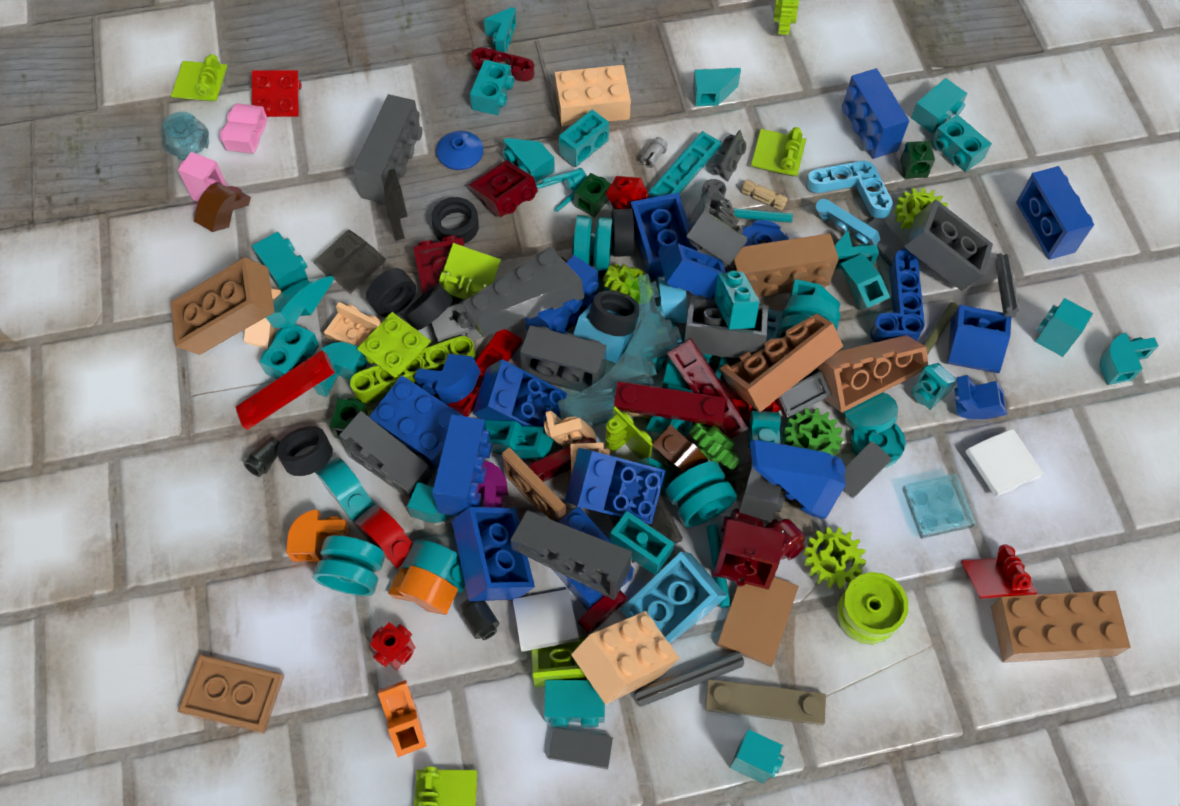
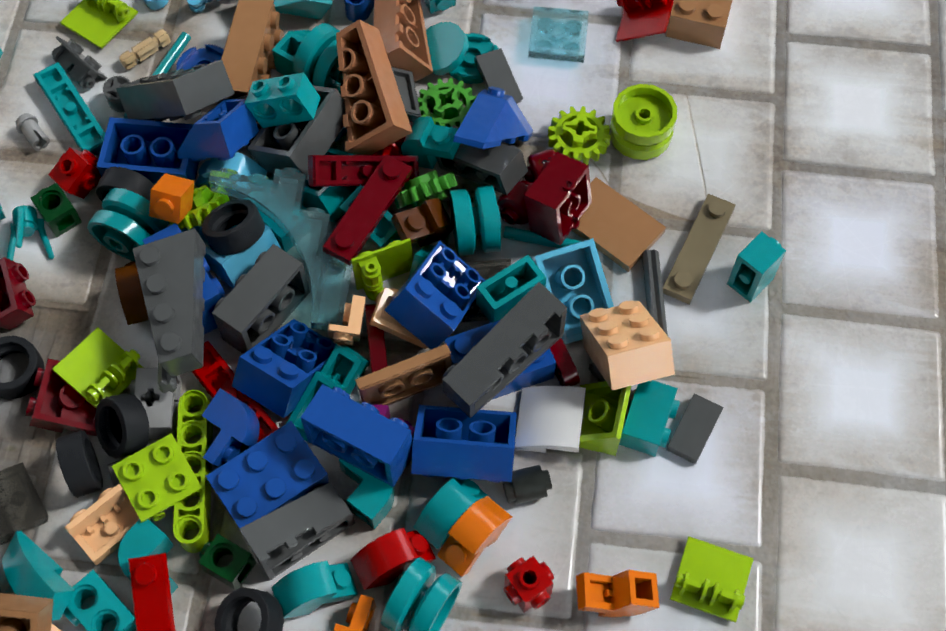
camera: 70 degrees left, 0 degrees up
(615, 259) = (171, 198): none -> orange brick

